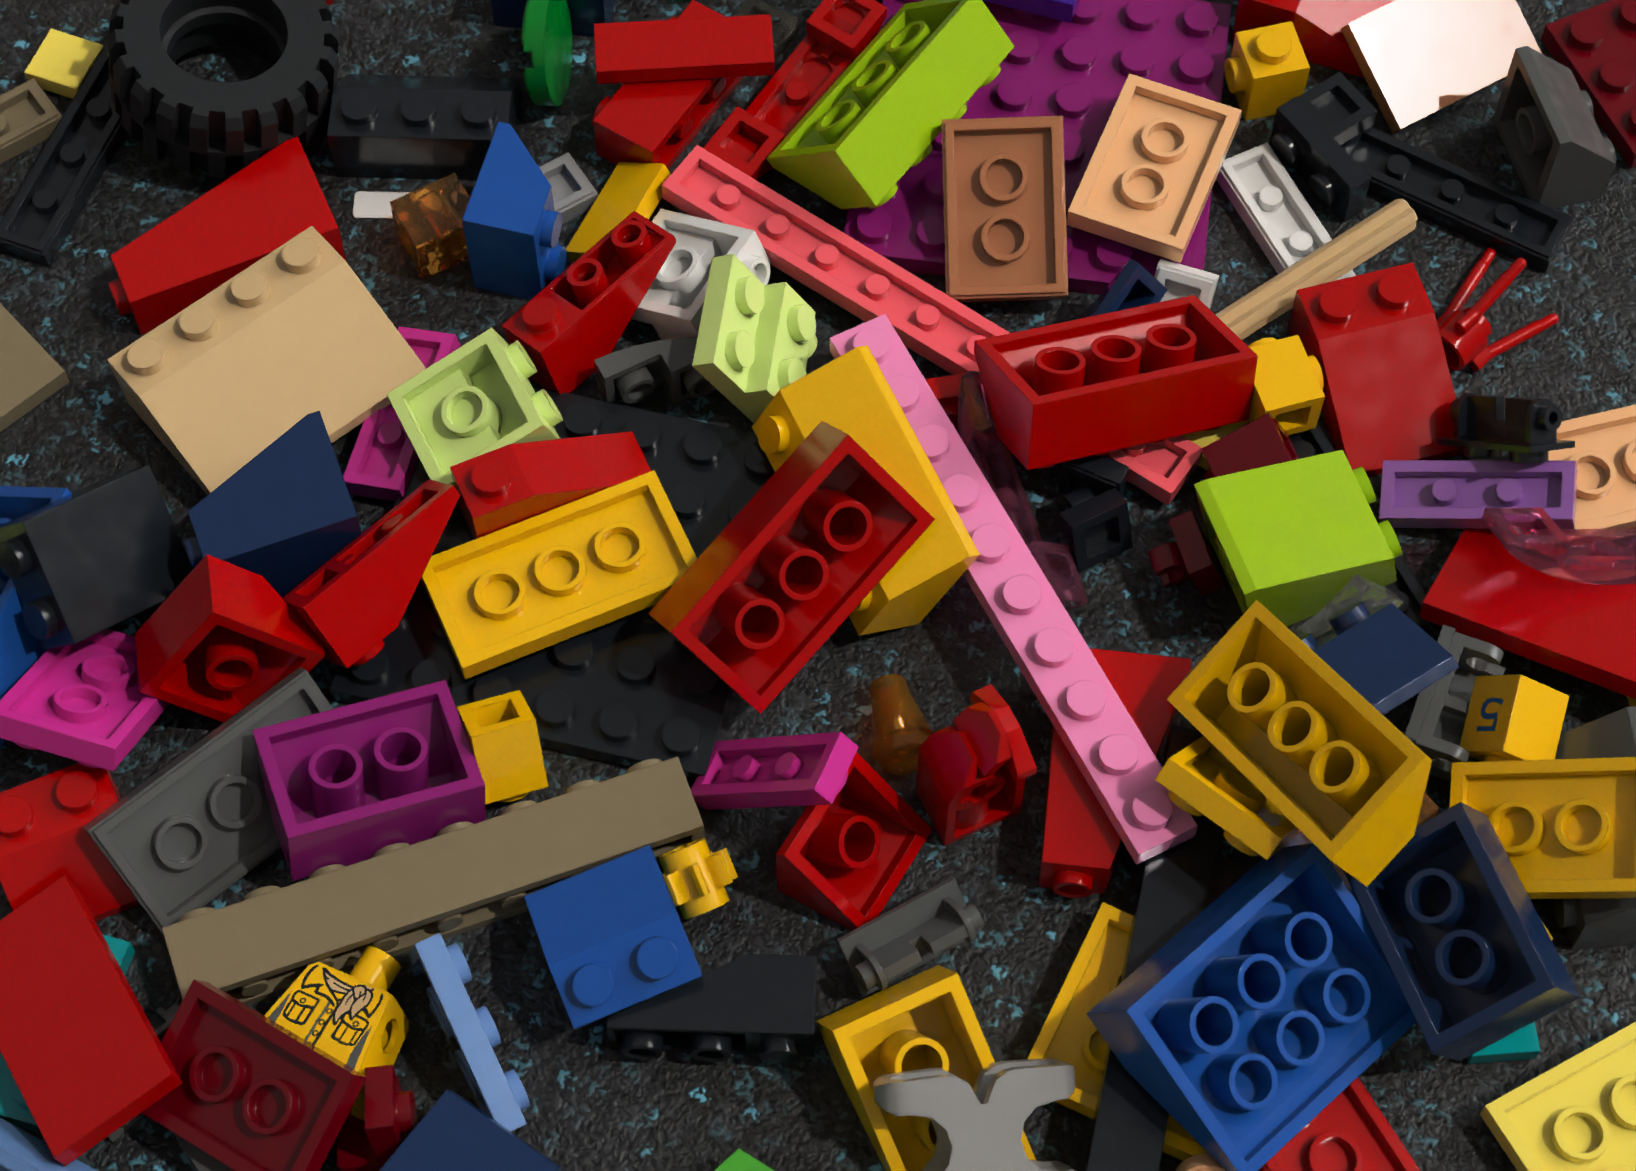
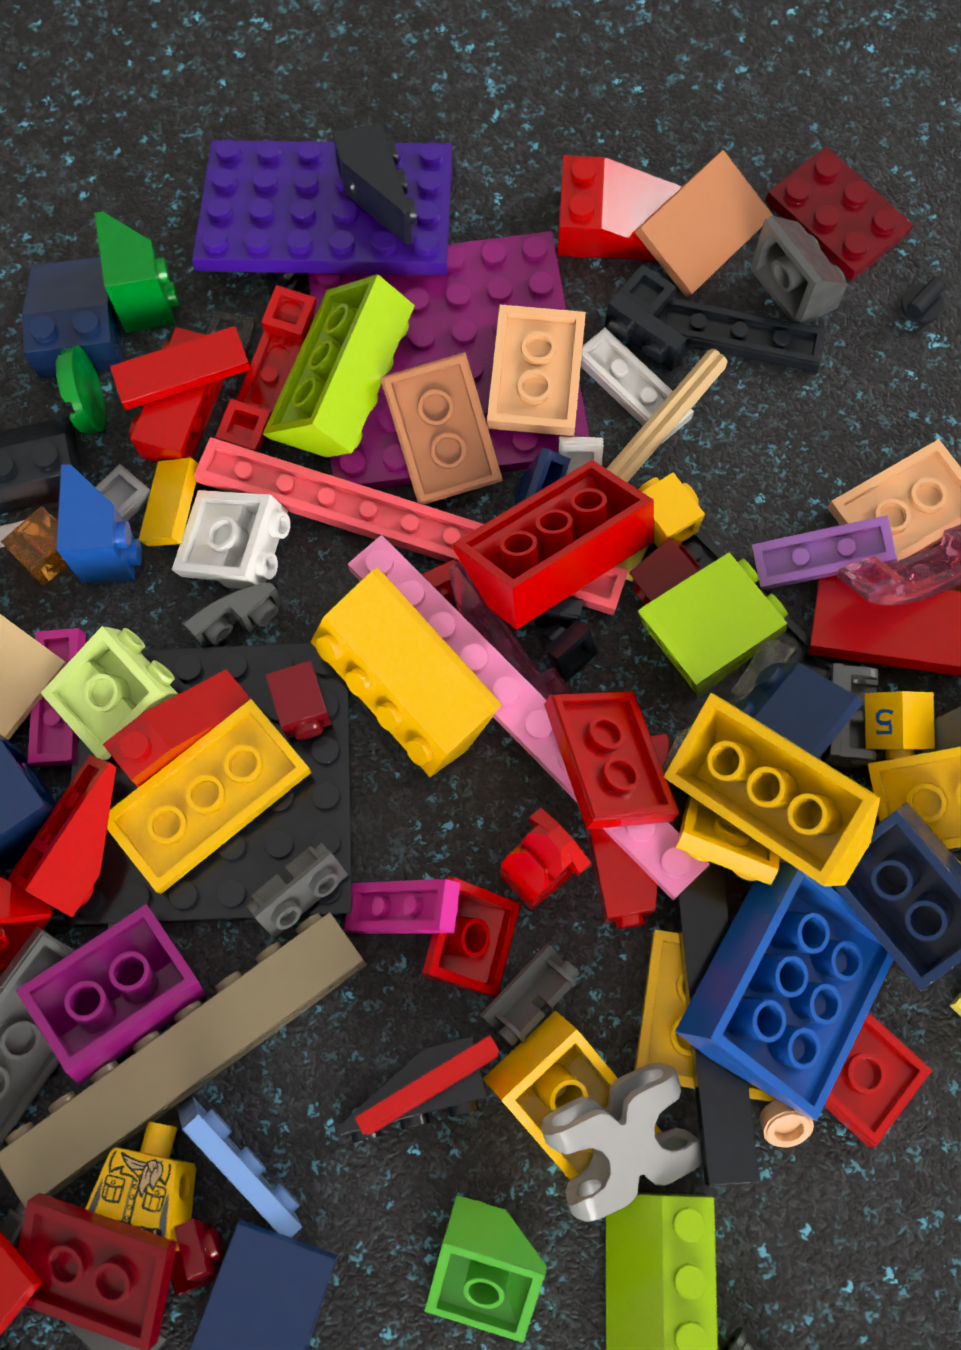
camera: 15 degrees left, 10 degrees up
(505, 746) = (201, 939): yellow brick -> none
(590, 303) = (168, 580): red slope -> none
(612, 936) = (323, 1065): blue slope -> none
(659, 716) = (281, 904): none -> dark grey hinge
(697, 877) = (366, 997): yellow gear -> none
(713, 485) = (298, 701): none -> dark red brick
(743, 988) = (427, 1086): none -> red tile
(752, 336) = (292, 576): yellowish green plate -> none
(792, 565) = (369, 751): red slope -> none
(896, 725) = (477, 837): clear orange cone -> none
(1103, 659) = (610, 759): none -> red tile
(1187, 557) = (640, 652): dark red tile -> none
(1266, 69) = (591, 274): yellow brick -> none
(1379, 366) = (732, 476): red slope -> none
(1467, 331) = (777, 436): red plant -> none
(1526, 431) = (848, 502): black hinge -> none

